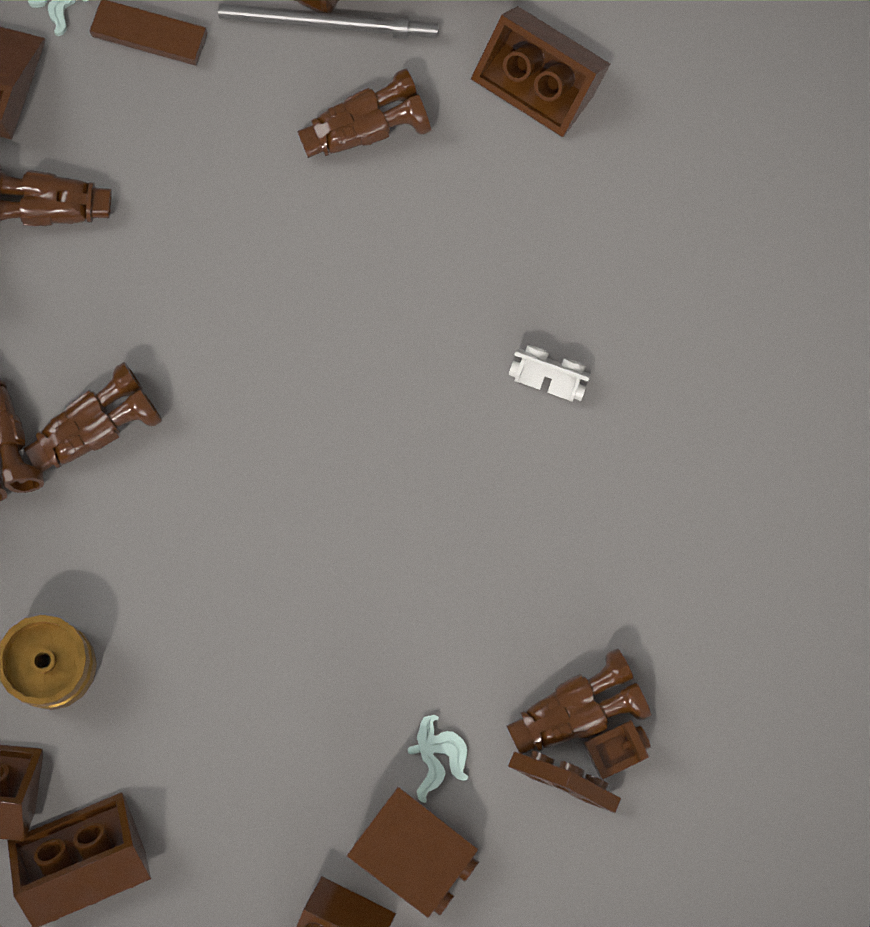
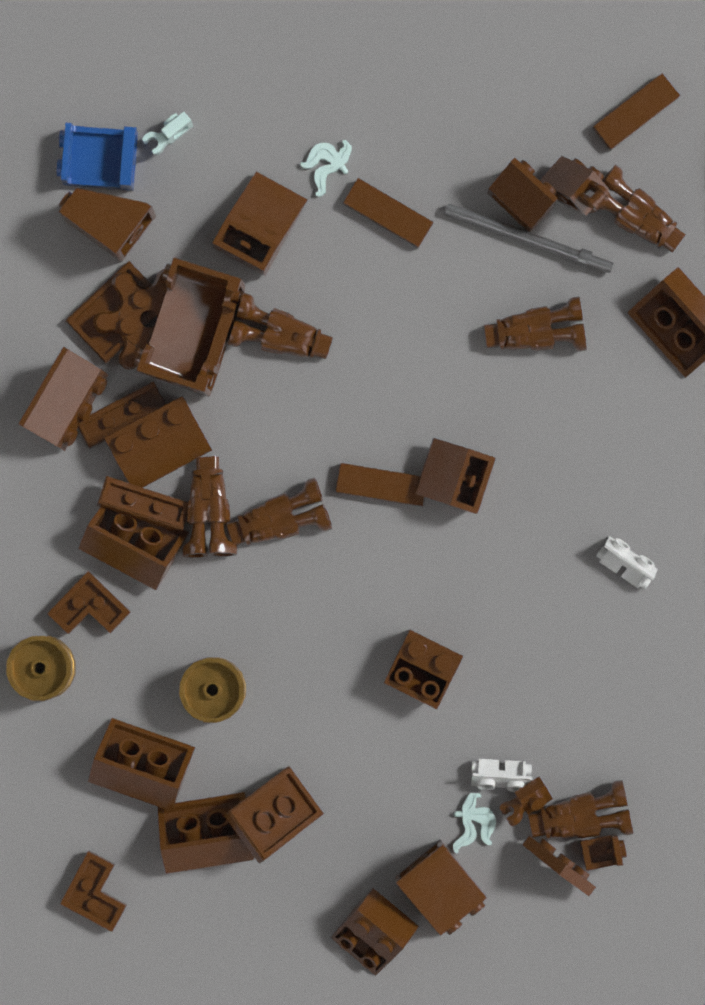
camera: 15 degrees right, 10 degrees up
(162, 809) = (273, 814): none -> reddish brown tile
(213, 353) = (378, 484): none -> reddish brown tile
(303, 314) = (455, 475): none -> reddish brown slope
(320, 565) = (423, 669): none -> reddish brown slope
(476, 682) = (488, 776): none -> white hinge
(501, 704) = (528, 799): none -> reddish brown plate

